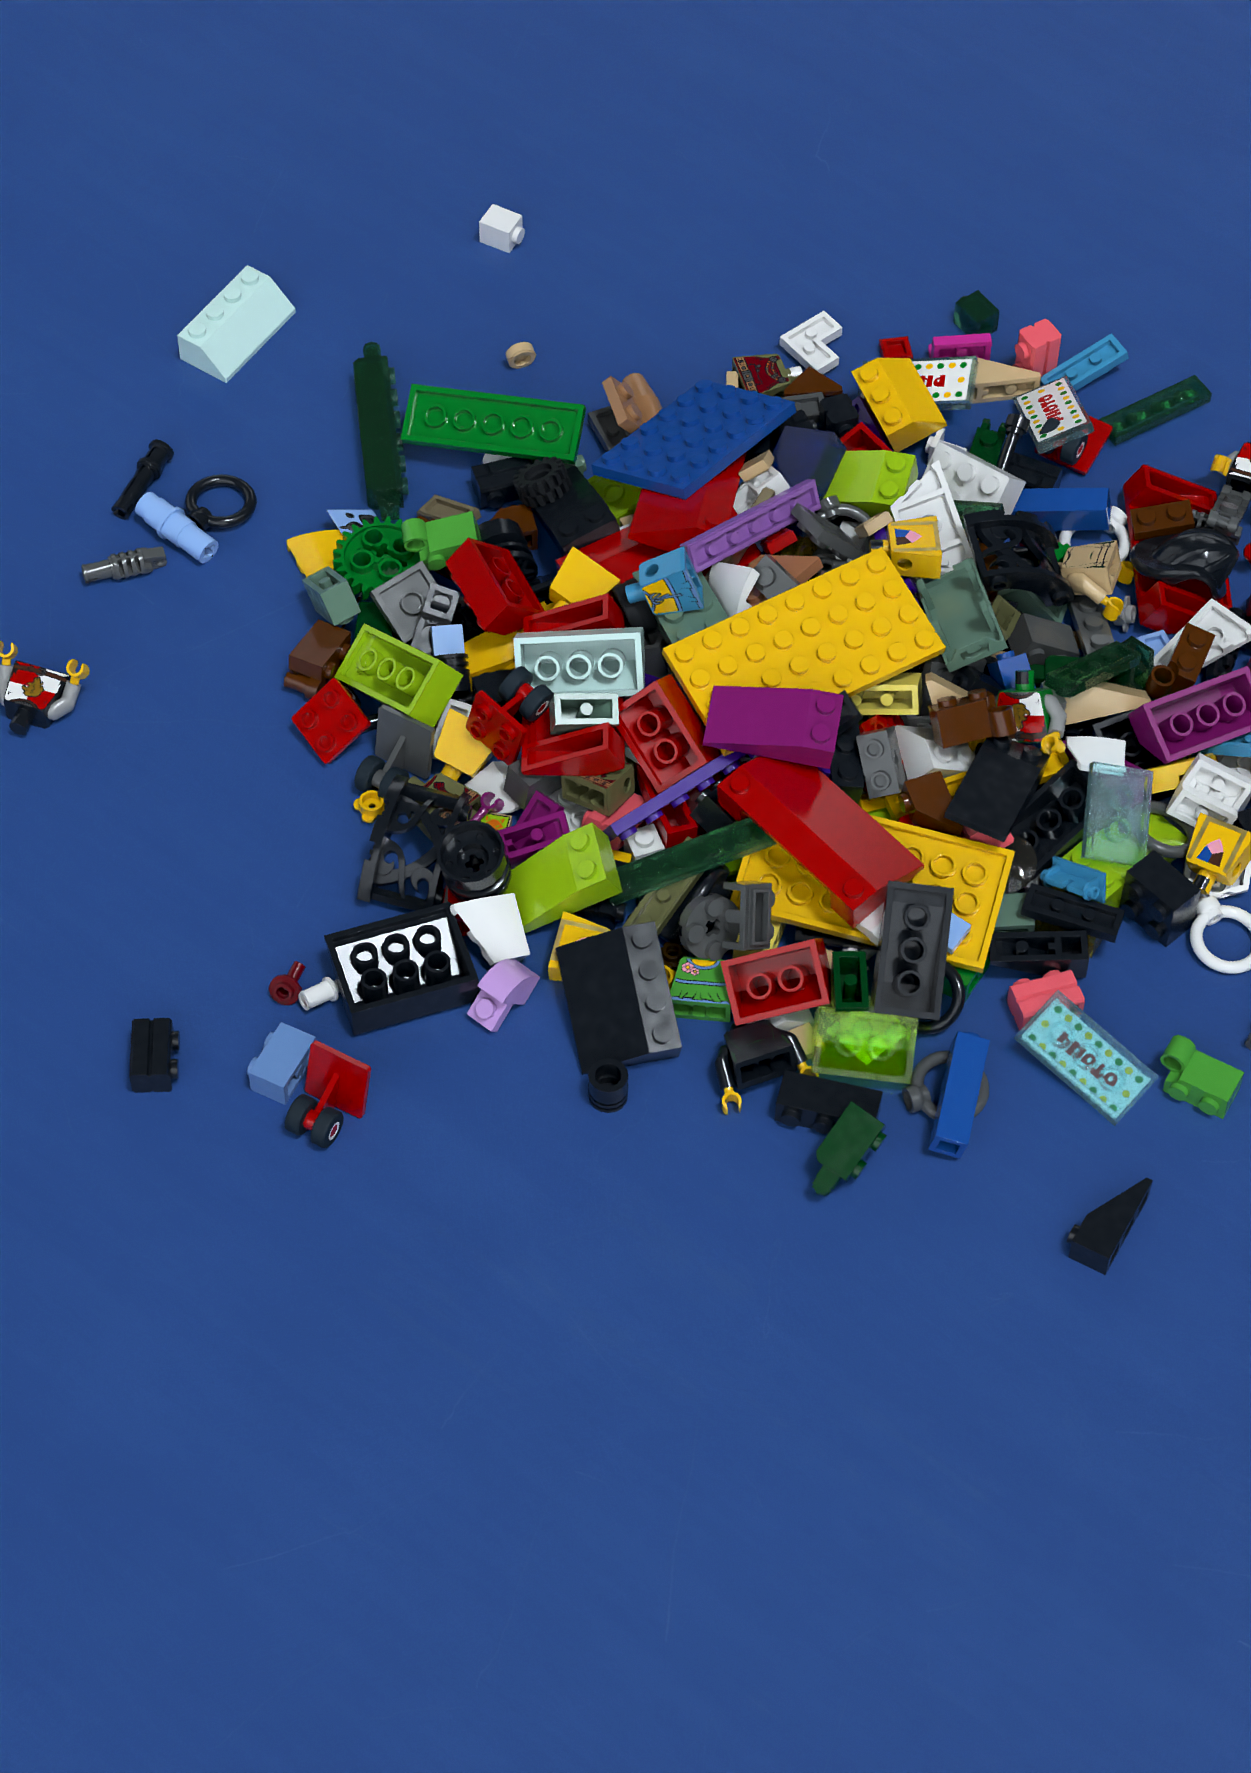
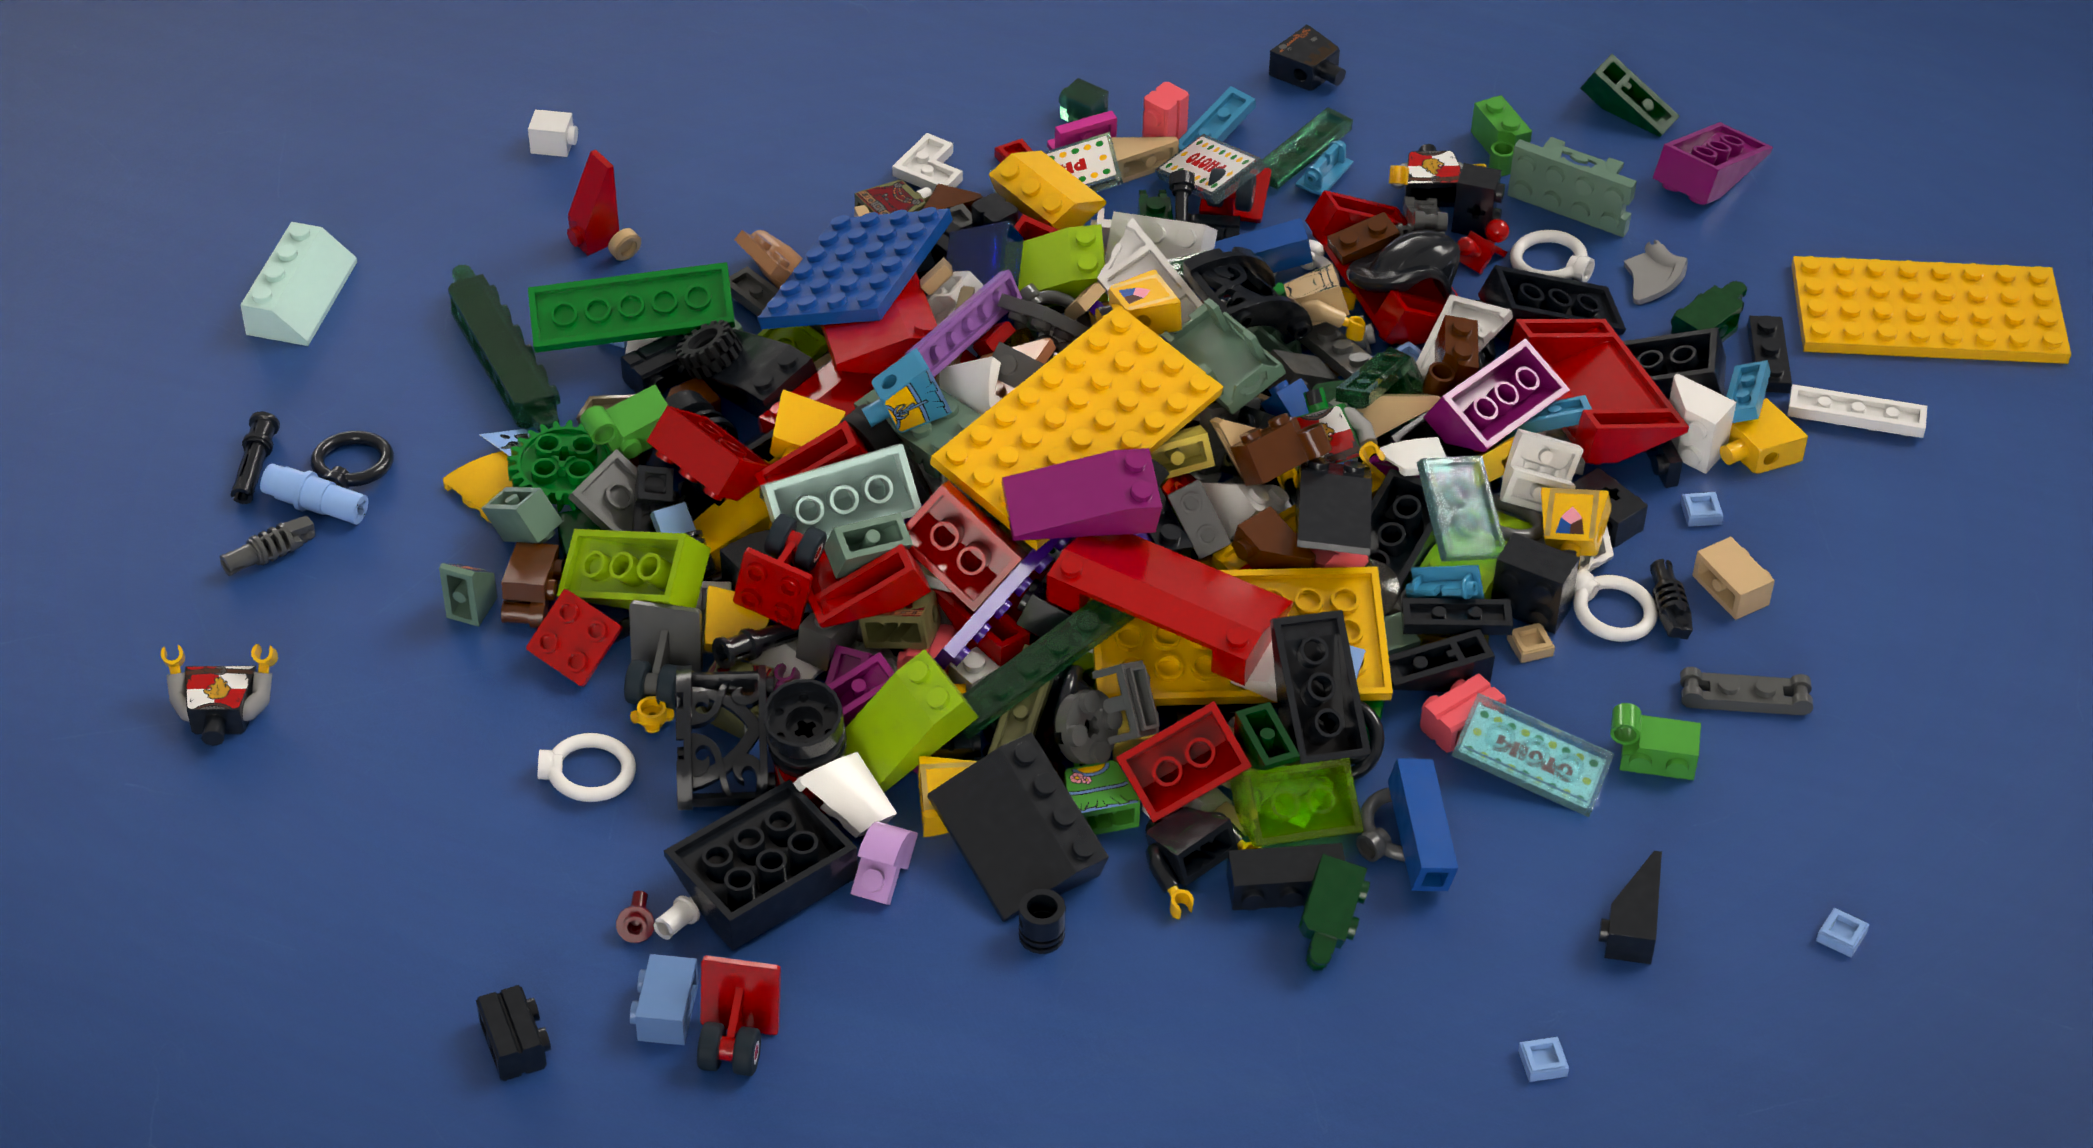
camera: 20 degrees left, 10 degrees down
(263, 652) = (467, 592): none -> sand green slope
(273, 829) = (551, 764): none -> white piece
(468, 768) = (751, 643): none -> black pin
(502, 316) = (594, 206): none -> red slope
(972, 1331) = (1543, 1059): none -> light blue tile
(1138, 950) = (1531, 643): none -> tan tile
(1166, 438) = (1326, 169): none -> dark azure hinge
(1198, 320) = (1306, 60): none -> black torso

